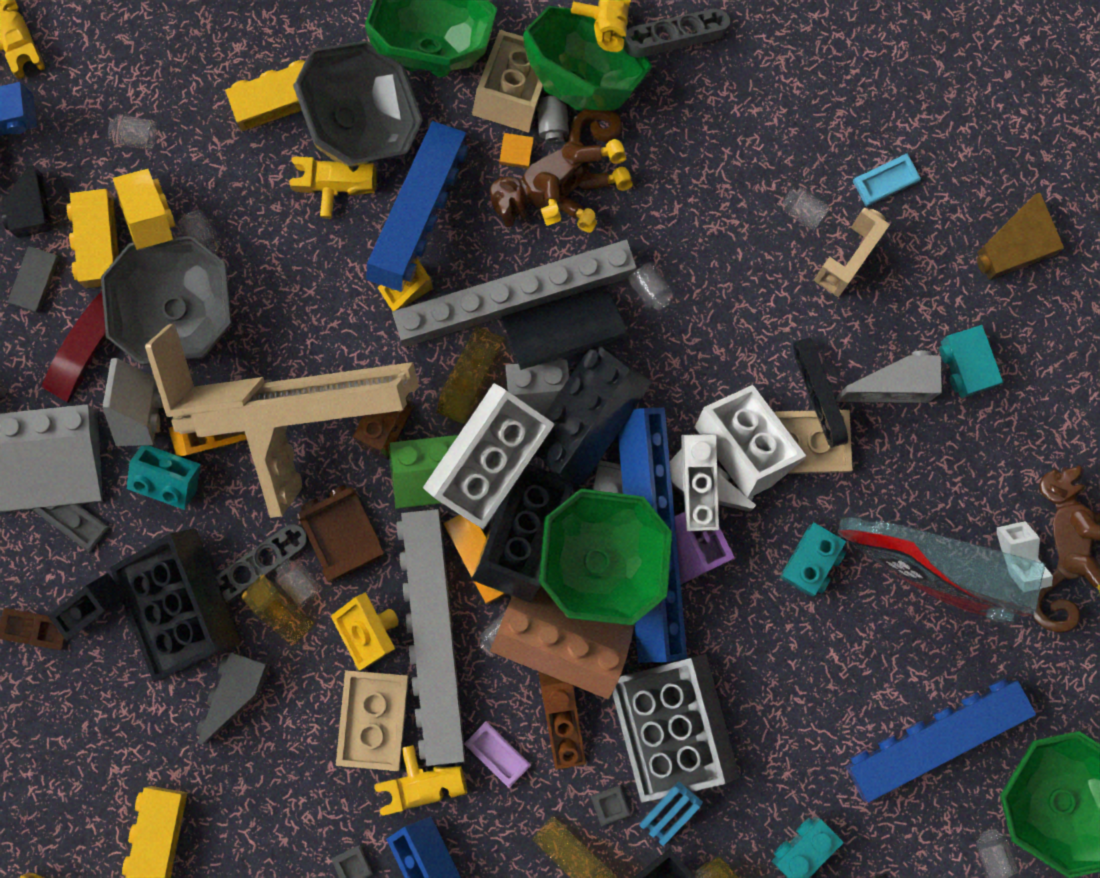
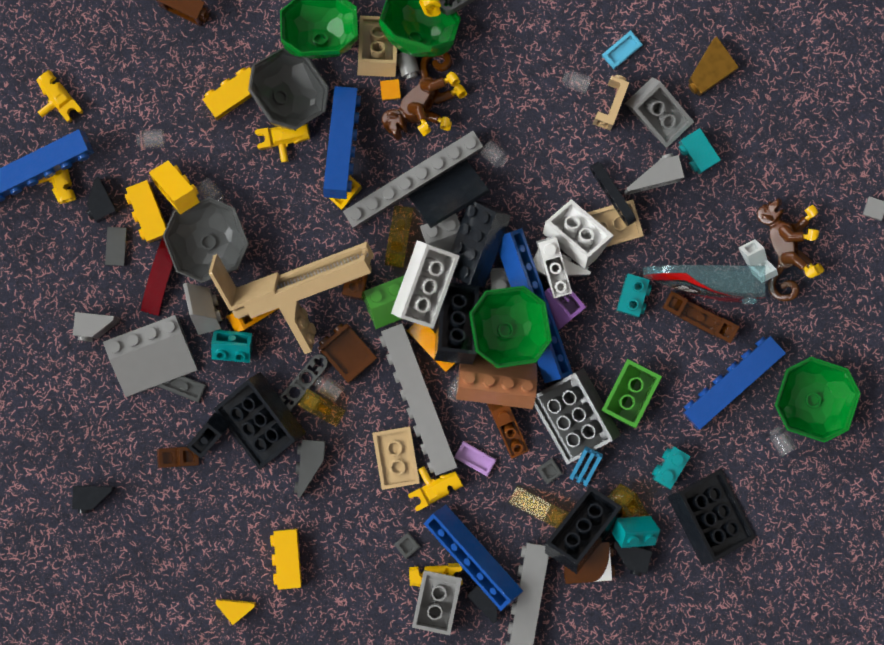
camera: 15 degrees left, 5 degrees up
(365, 630) = (377, 406): yellow tile -> none
(773, 715) = (631, 393): none -> bright green slope
(912, 623) = (700, 317): none -> reddish brown slope
(923, 286) = (659, 112): none -> light grey slope

